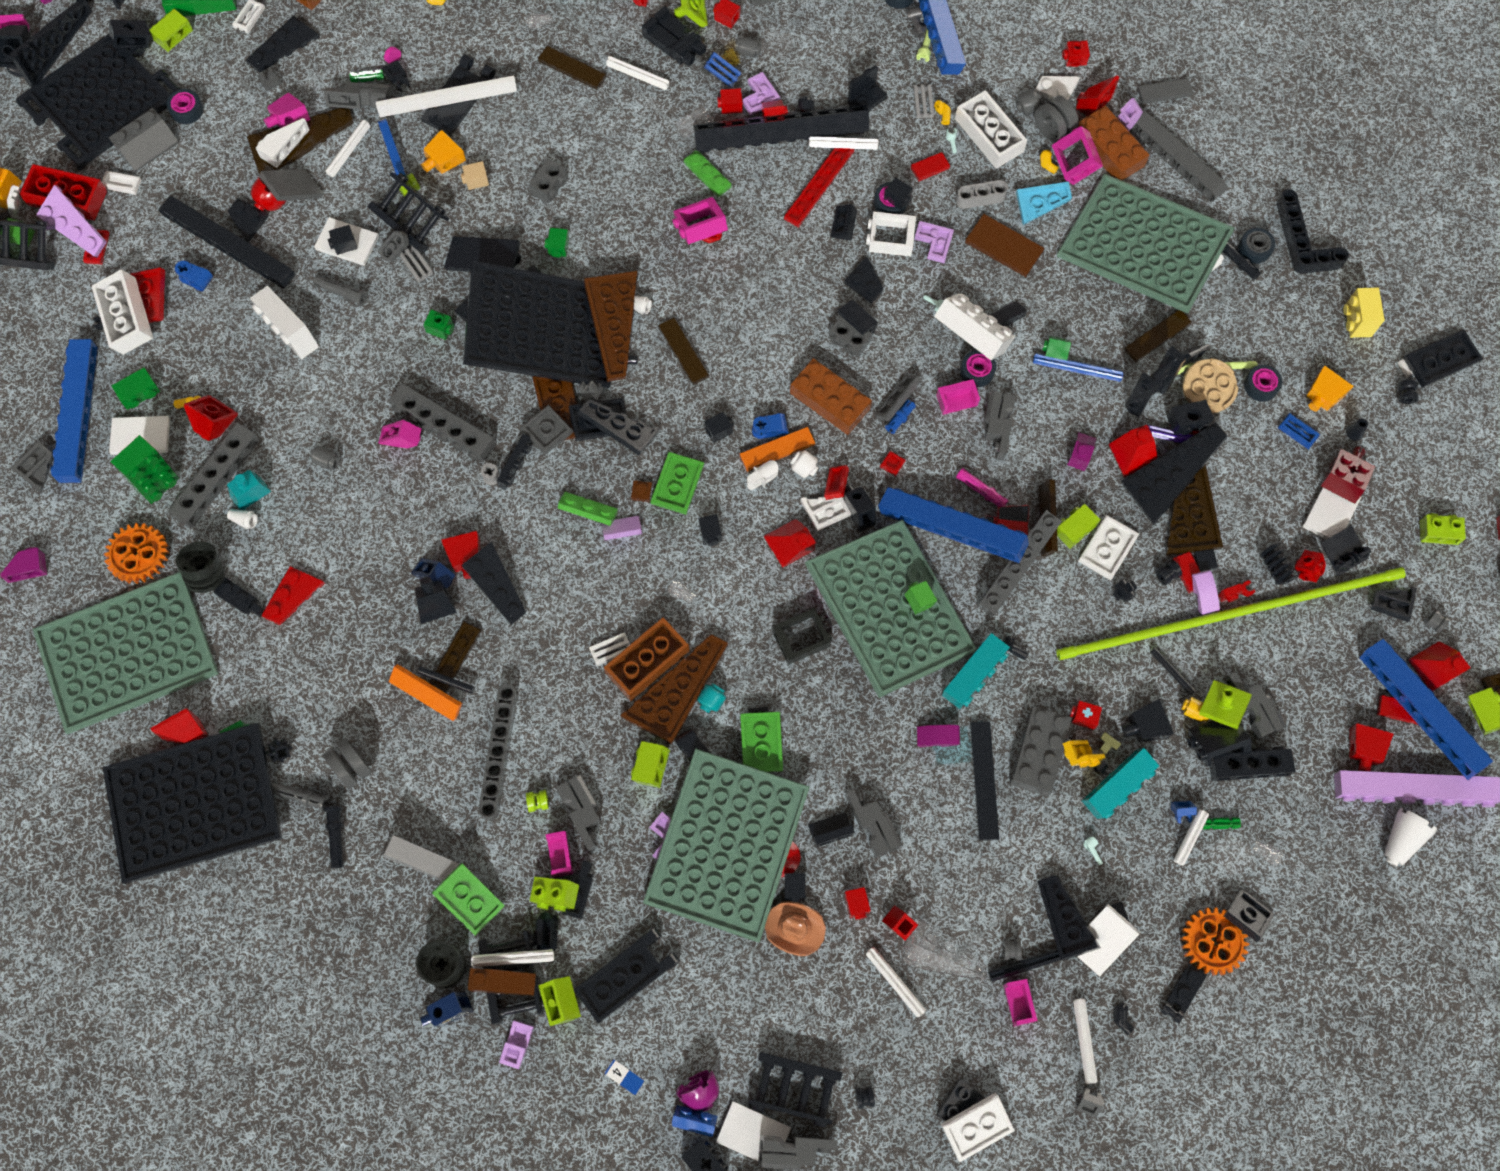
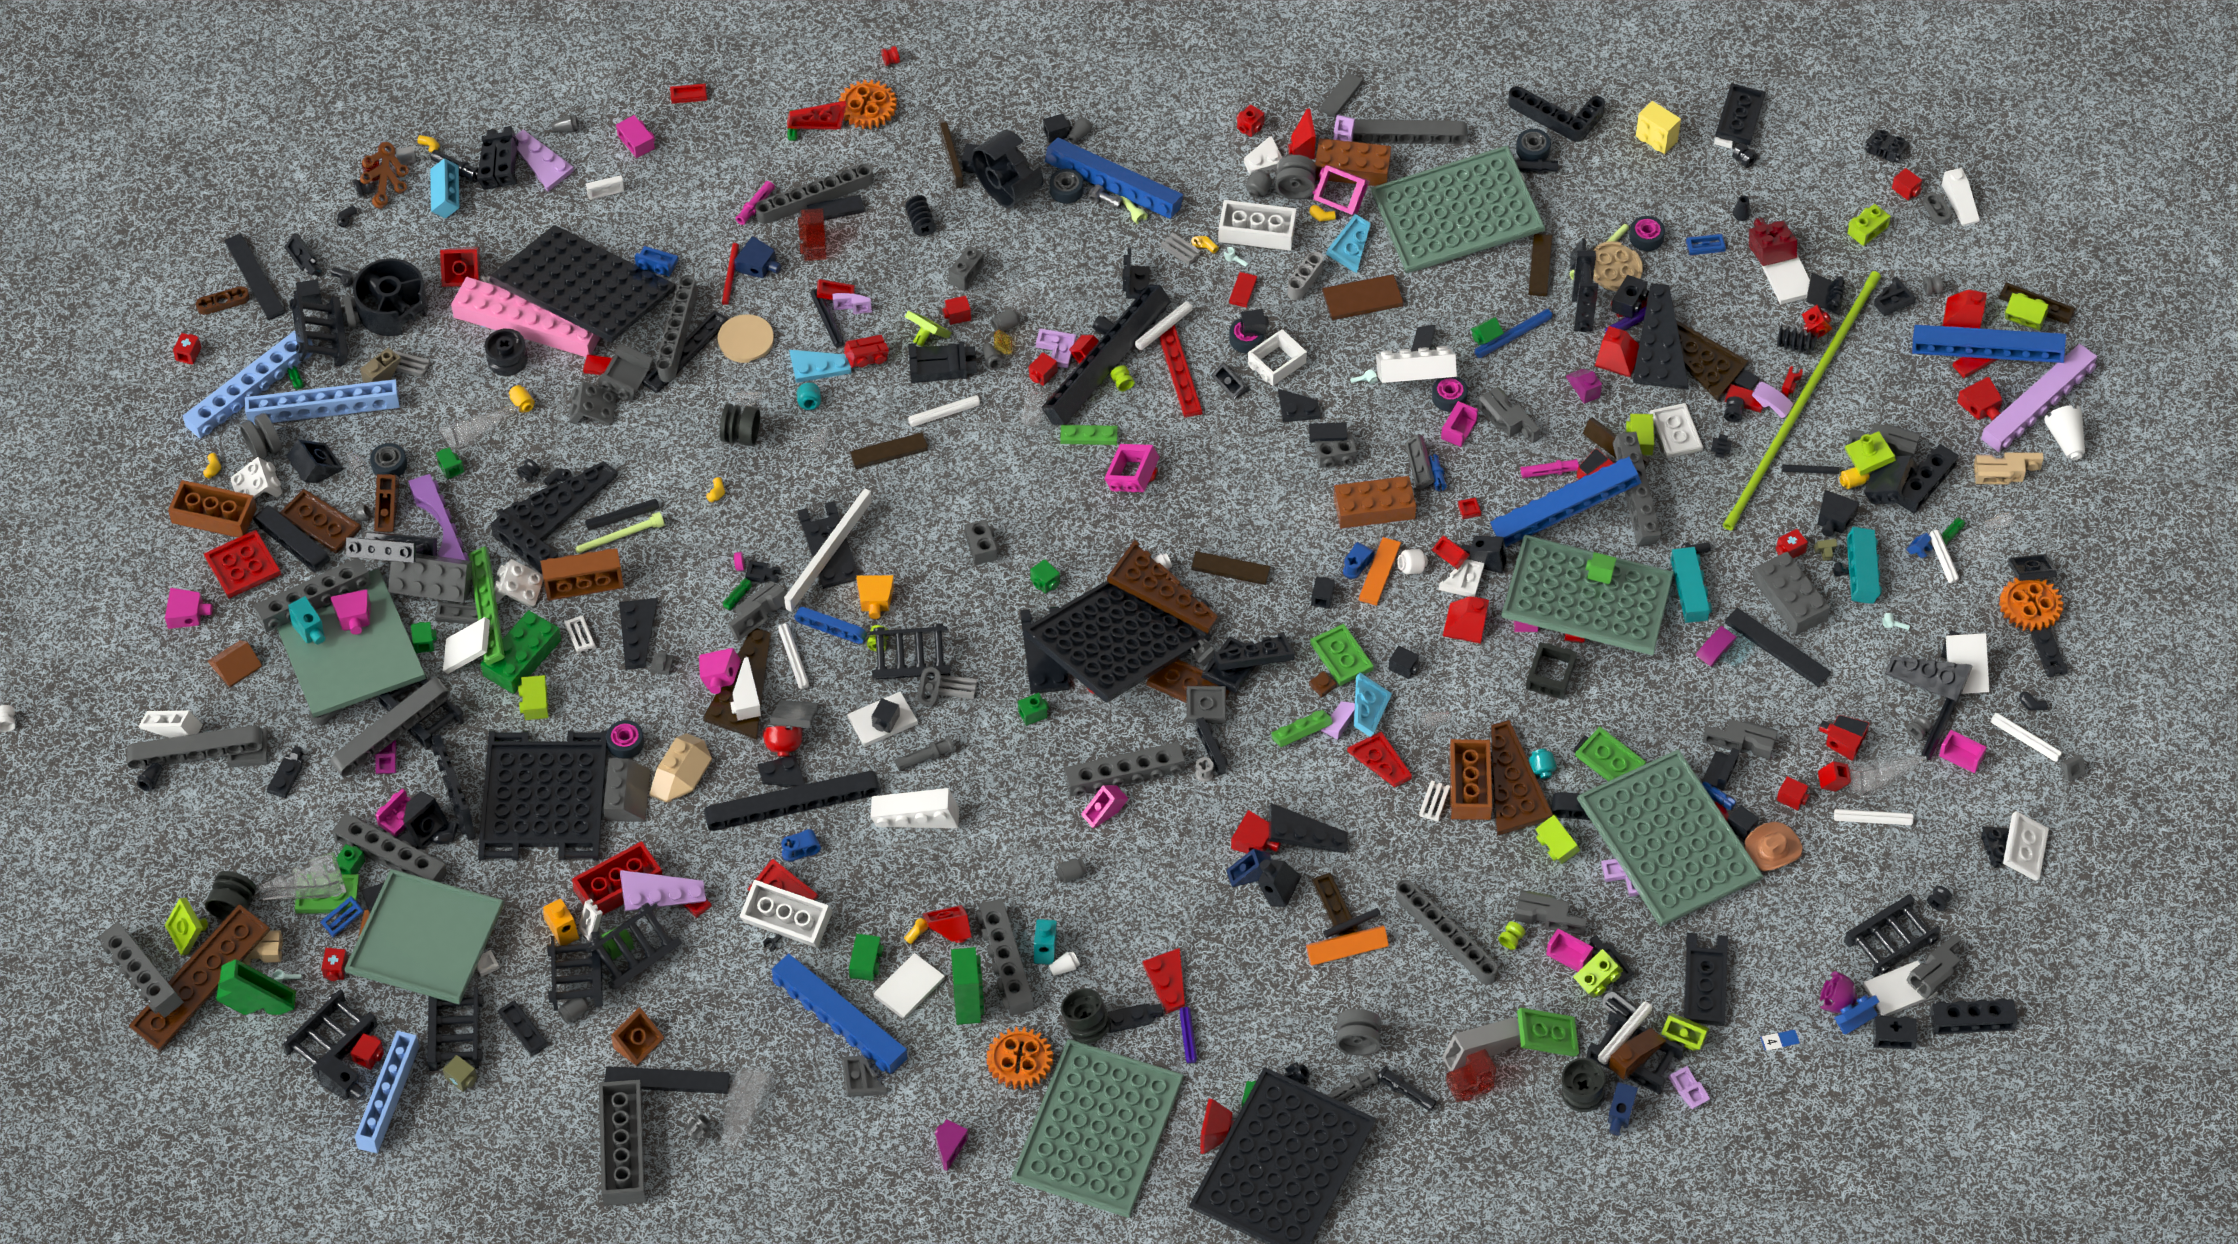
camera: 45 degrees left, 15 degrees down
(121, 182) = (648, 835): white tile -> none
(129, 33) = (510, 726): black brick -> none
(194, 154) = (680, 768): none -> tan wedge
(254, 647) = (1188, 1035): none -> dark purple axle
(380, 875) = (1474, 1078): none -> clear red brick
(474, 175) = (921, 586): tan brick -> none
(485, 250) = (1000, 634): black tile -> none
(612, 583) = (1381, 758): none -> red wing
(647, 537) = (1369, 704): none -> medium azure wing
(734, 77) = (1009, 348): blue tile -> none
(762, 475) = (1393, 594): white arm -> none
(773, 155) = (1122, 378): none -> lime wheel
(804, 847) = (1719, 796): none -> blue axle
(938, 237) = (1313, 331): lavender plate -> none
(949, 898) = (1845, 735): none -> red torso
(1080, 754) = (1816, 570): yellow bracket -> none
(1319, 817) = (2006, 469): none -> tan plate
(1327, 390) = (1692, 200): light orange torso -> none

